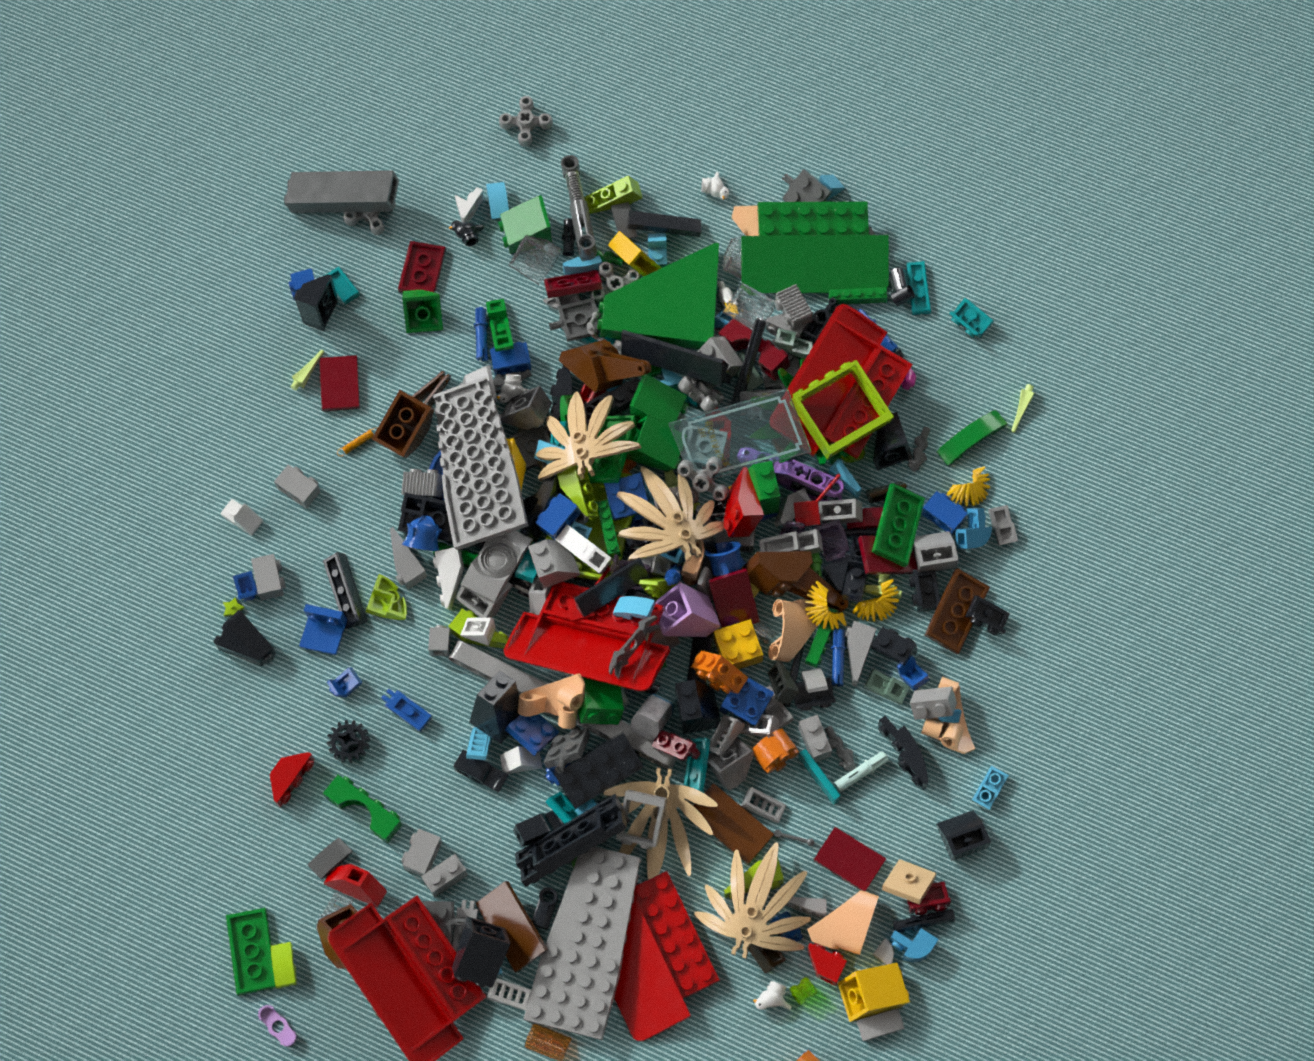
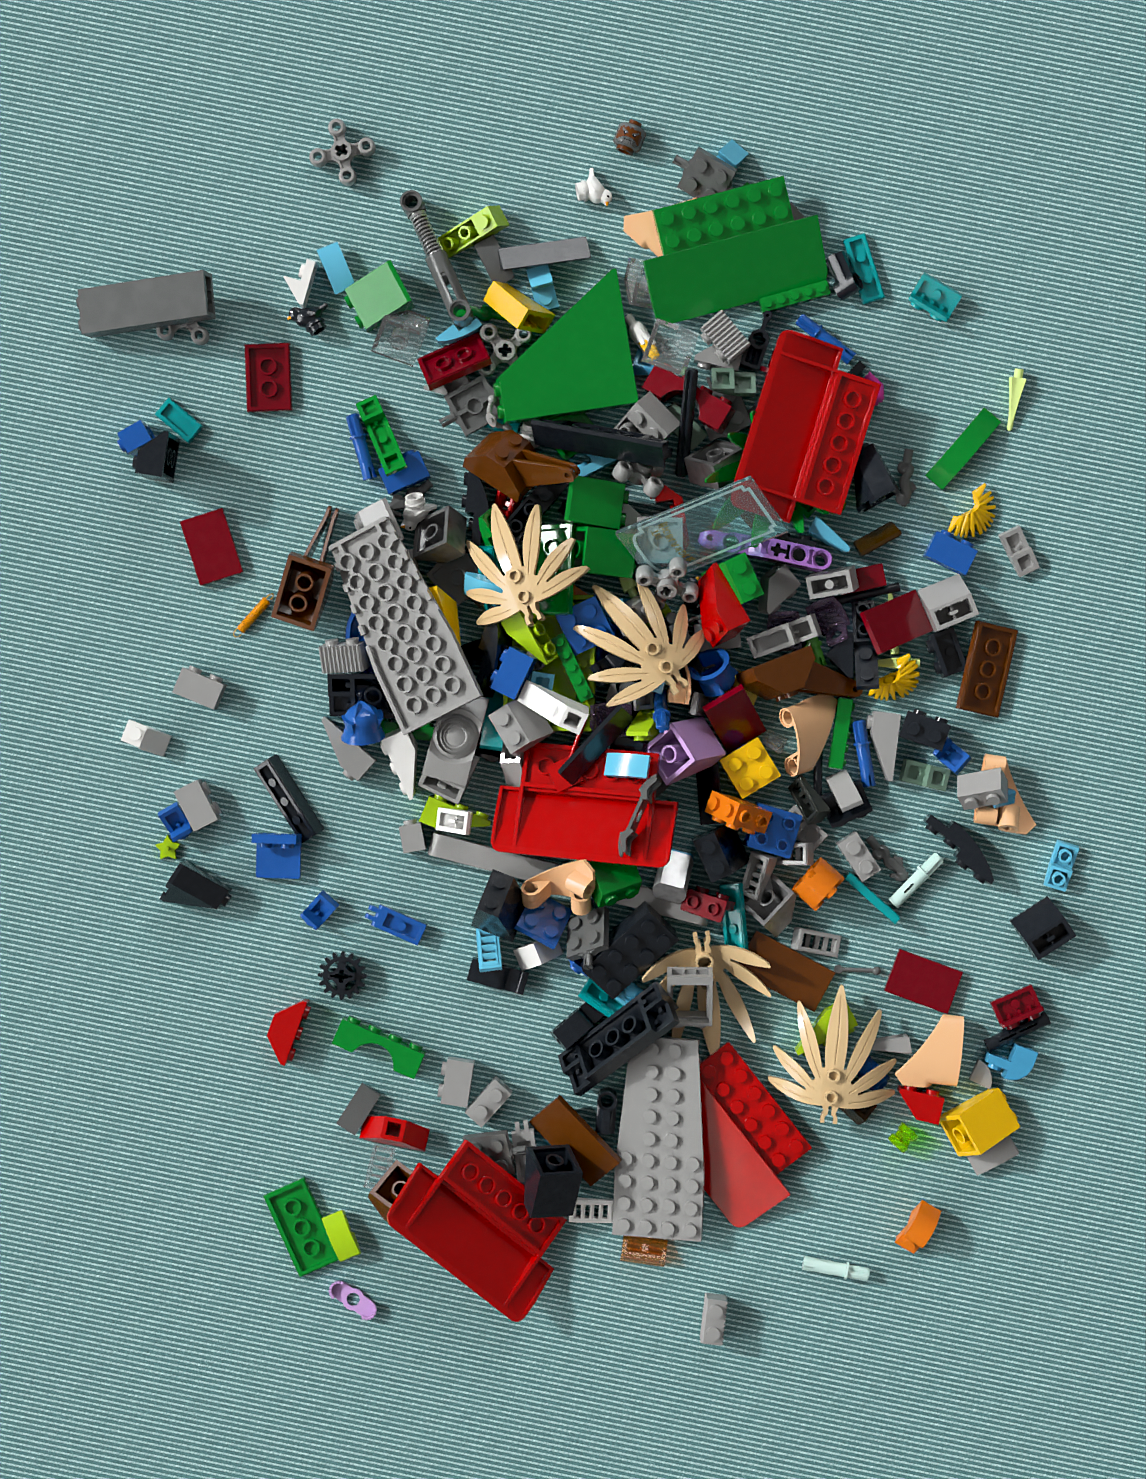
camera: 15 degrees left, 20 degrees up
(302, 376) = (166, 547): yellowish green piece -> none
(386, 600) = (339, 800): lime brick -> none
(422, 311) = (283, 435): green slope -> none
(568, 248) = (435, 312): black pin -> none
(752, 156) = (629, 137): none -> head
(772, 997) = (871, 1151): white animal -> none
(808, 511) = (797, 594): red piece -> none
(816, 386) = (847, 481): lime window -> none
(820, 609) = (832, 706): yellow hair -> none
(898, 525) = (901, 584): green tile -> none
(909, 881) = (994, 995): tan plate -> none
(976, 533) = (991, 572): dark azure brick -> none
(987, 615) = (1022, 668): black bracket -> none

